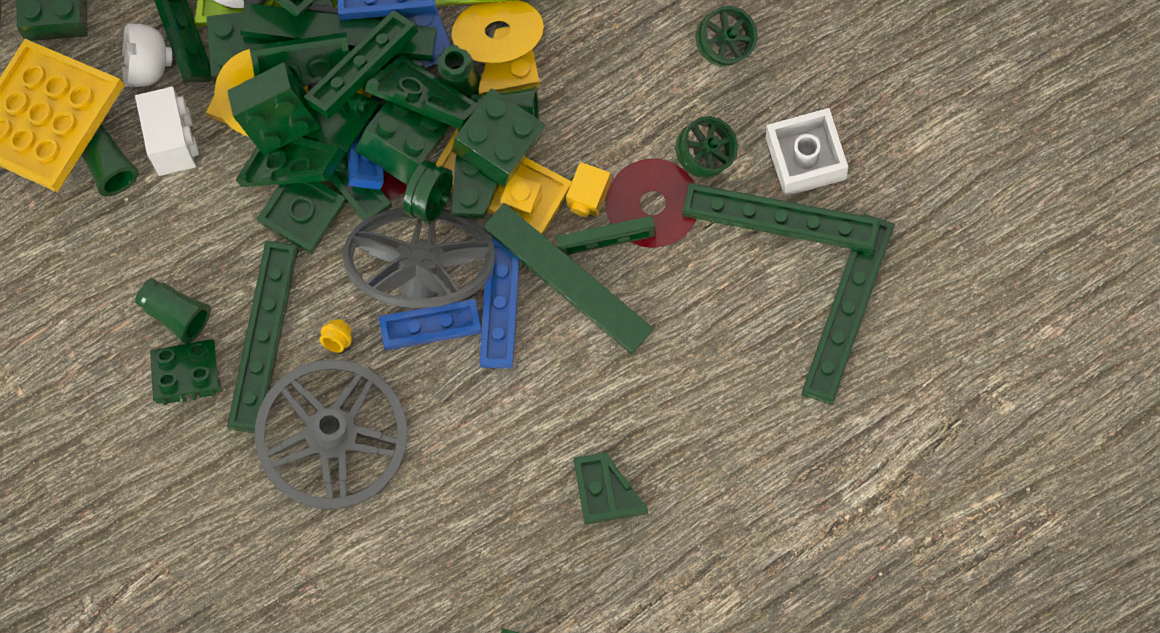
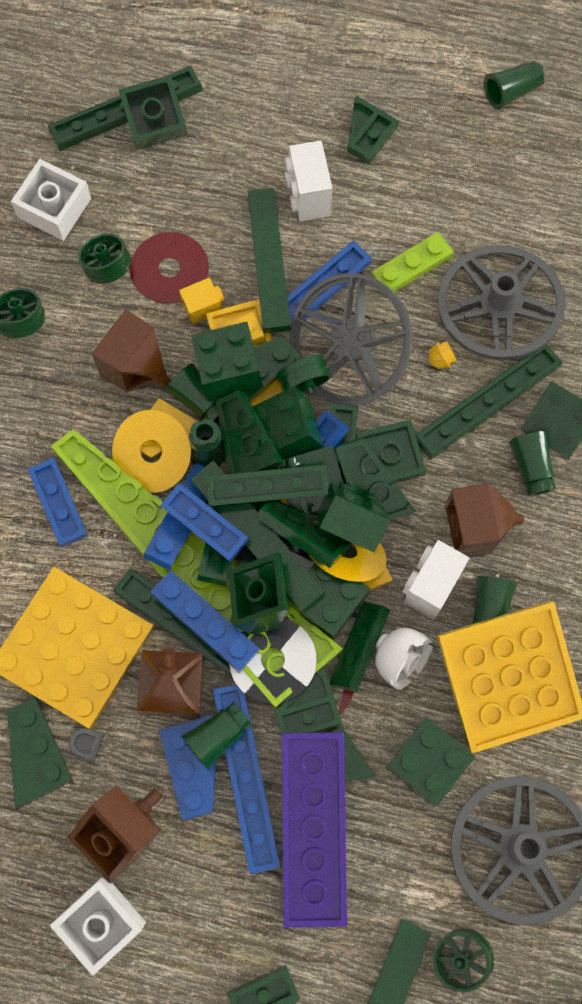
camera: 145 degrees left, 0 degrees up
(172, 211) = (479, 519): none -> reddish brown piece
(430, 324) = (378, 309): blue plate -> none
(443, 400) = (414, 262): none -> lime plate
(588, 84) = (130, 354): none -> reddish brown piece
(599, 374) = (309, 181): none -> white brick
(607, 235) = (219, 263): dark green tile -> none
(781, 217) = (107, 185): dark green tile -> none
(805, 310) = (153, 112): none -> dark green brick

